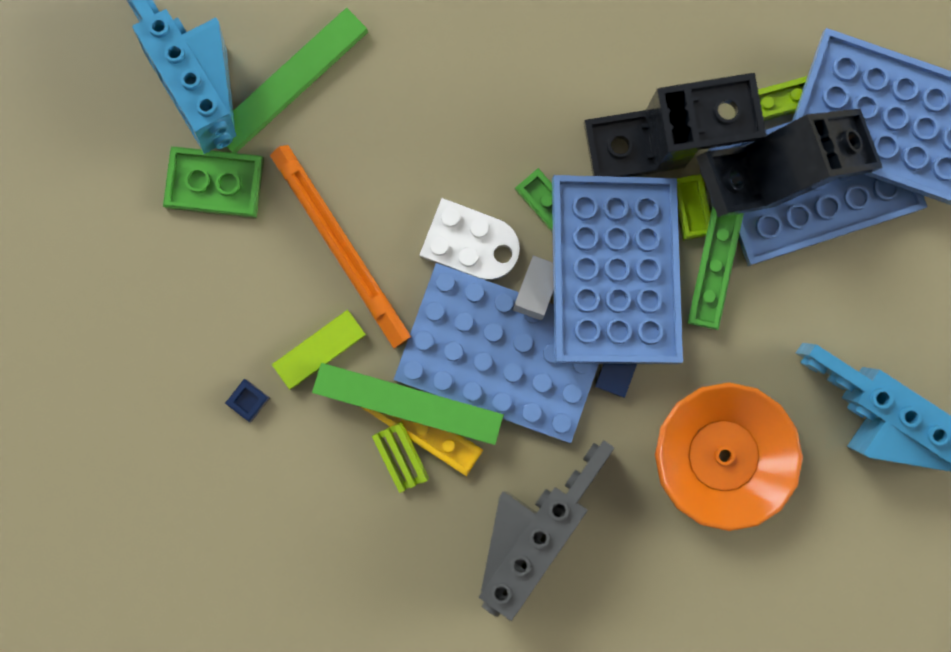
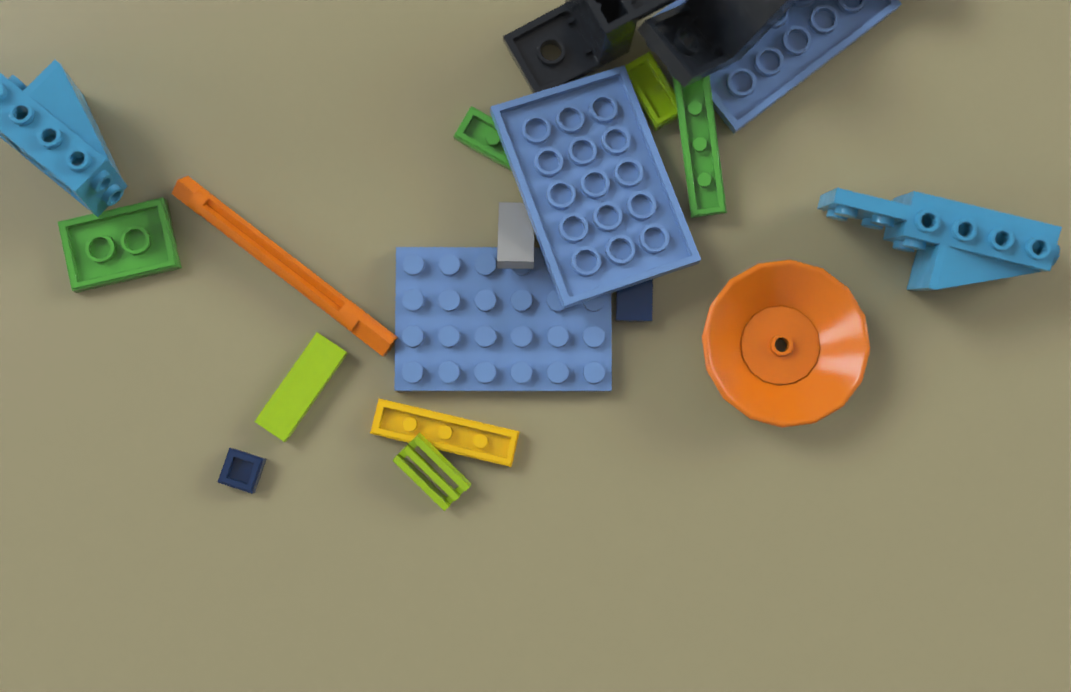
camera: 30 degrees left, 0 degrees up
(295, 76) = (169, 99): bright green tile -> none
(408, 403) = (418, 410): bright green tile -> none
(468, 240) = (423, 211): white plate -> none
(519, 532) = (590, 508): dark grey wedge -> none

